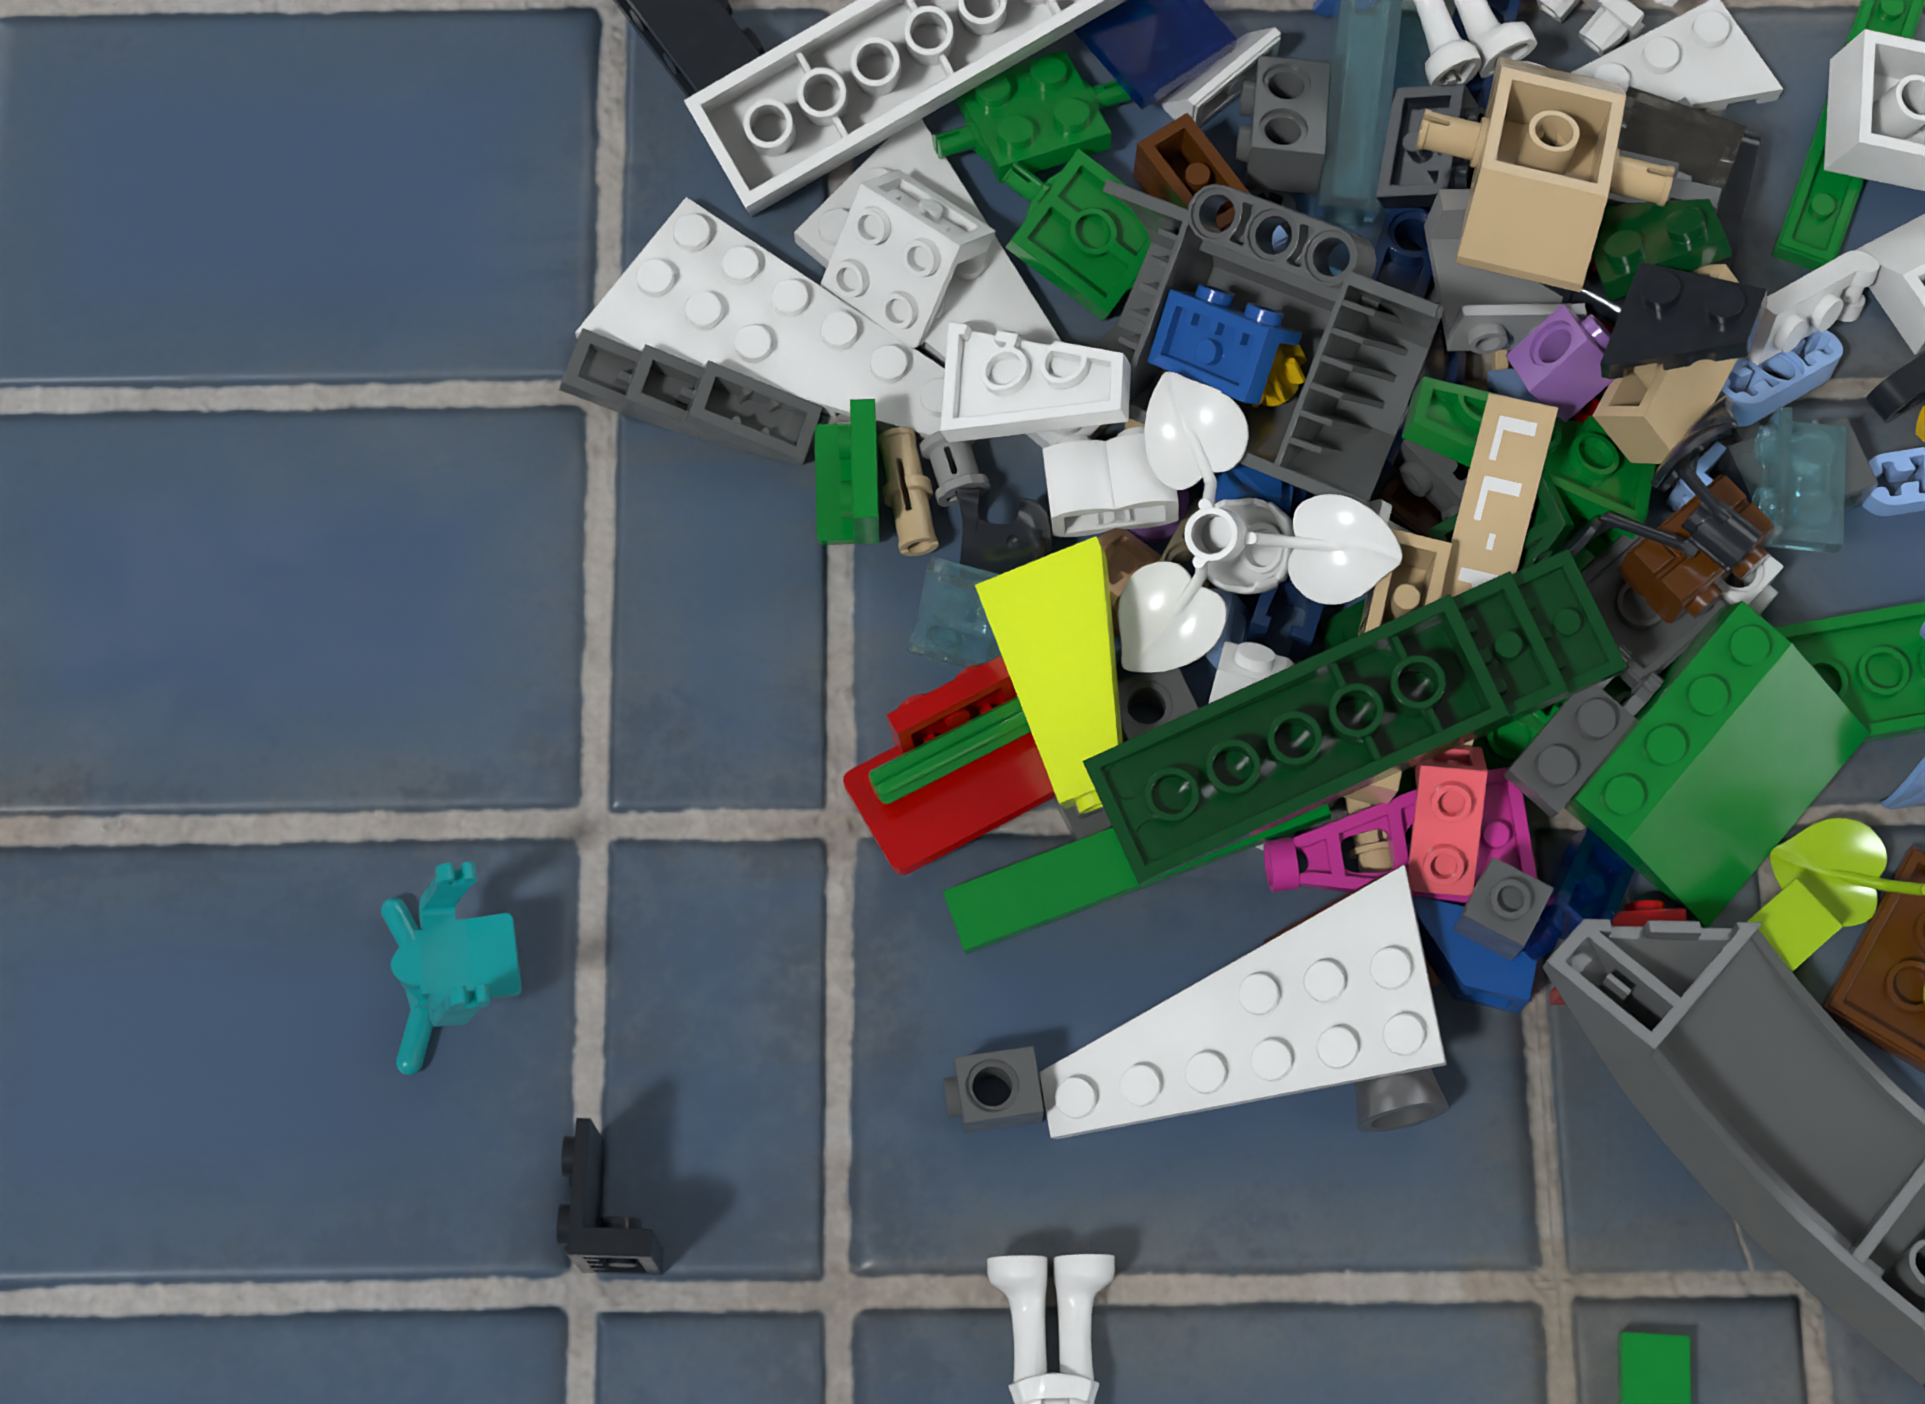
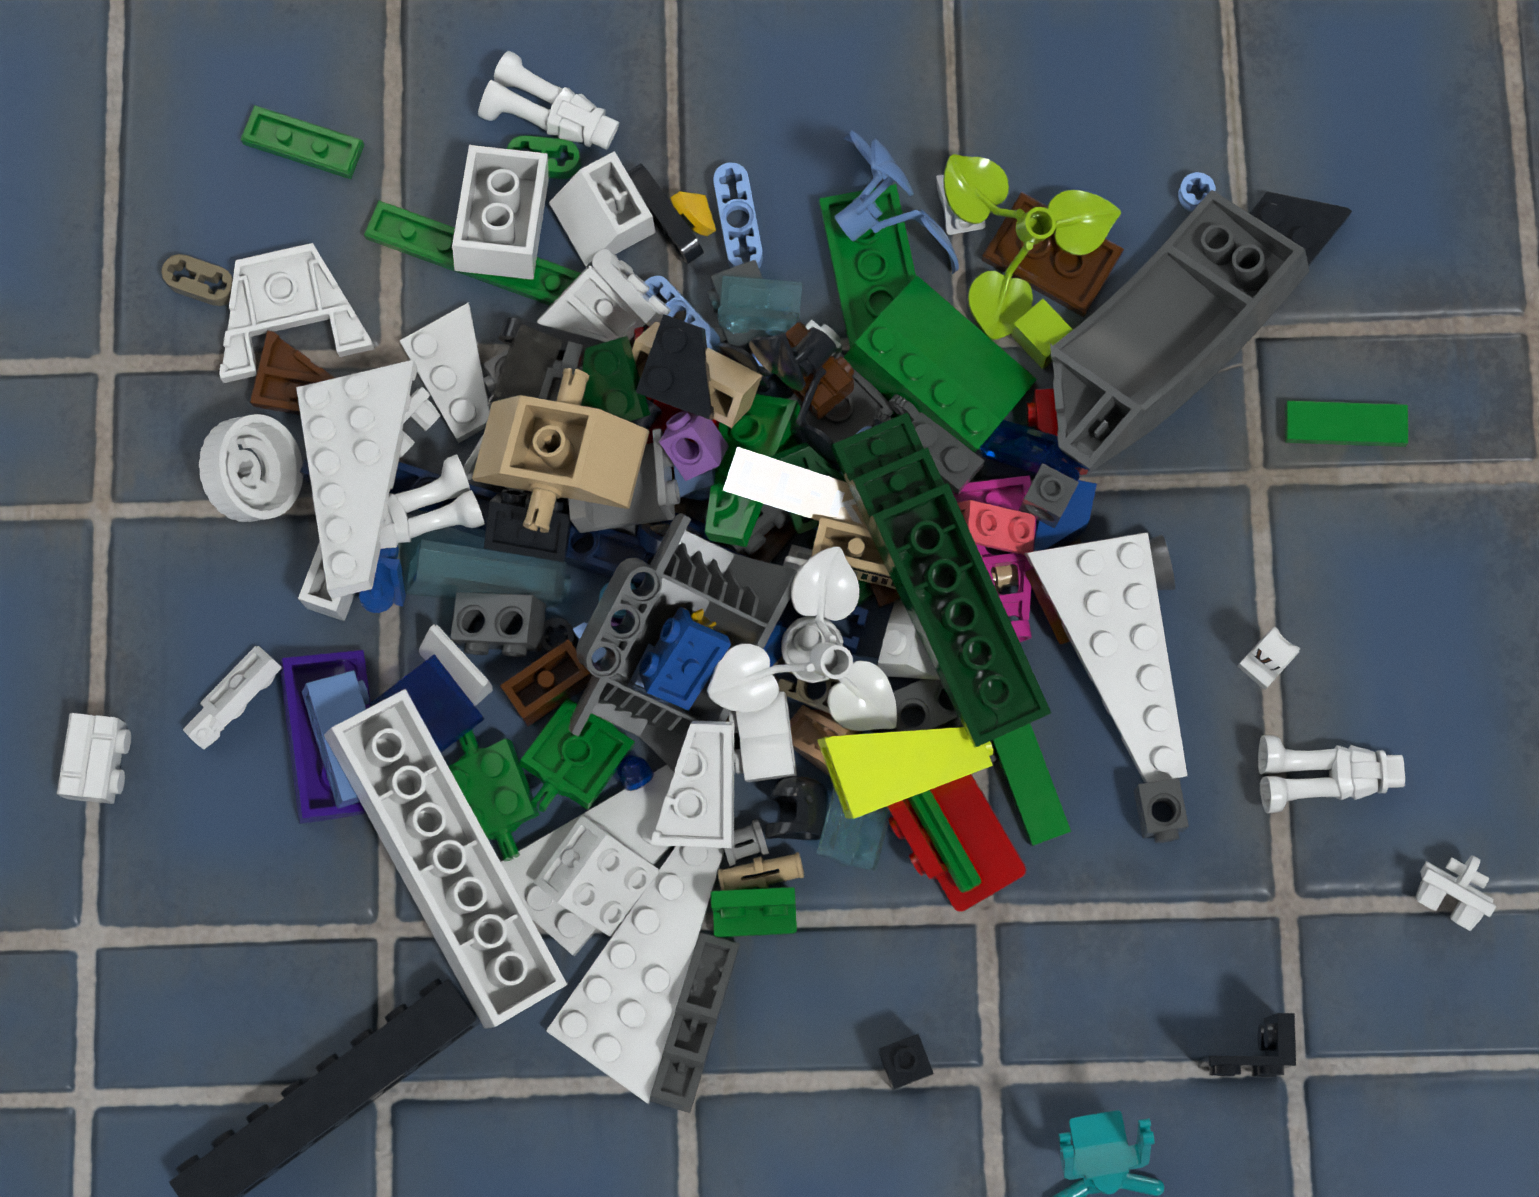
camera: 85 degrees left, 5 degrees up
(615, 687) = (905, 1061): none -> black brick
(1061, 313) = (634, 772): none -> clear blue hinge
(1244, 1274) = (1268, 658): none -> white leg
(1782, 240) = (592, 310): none -> white wing

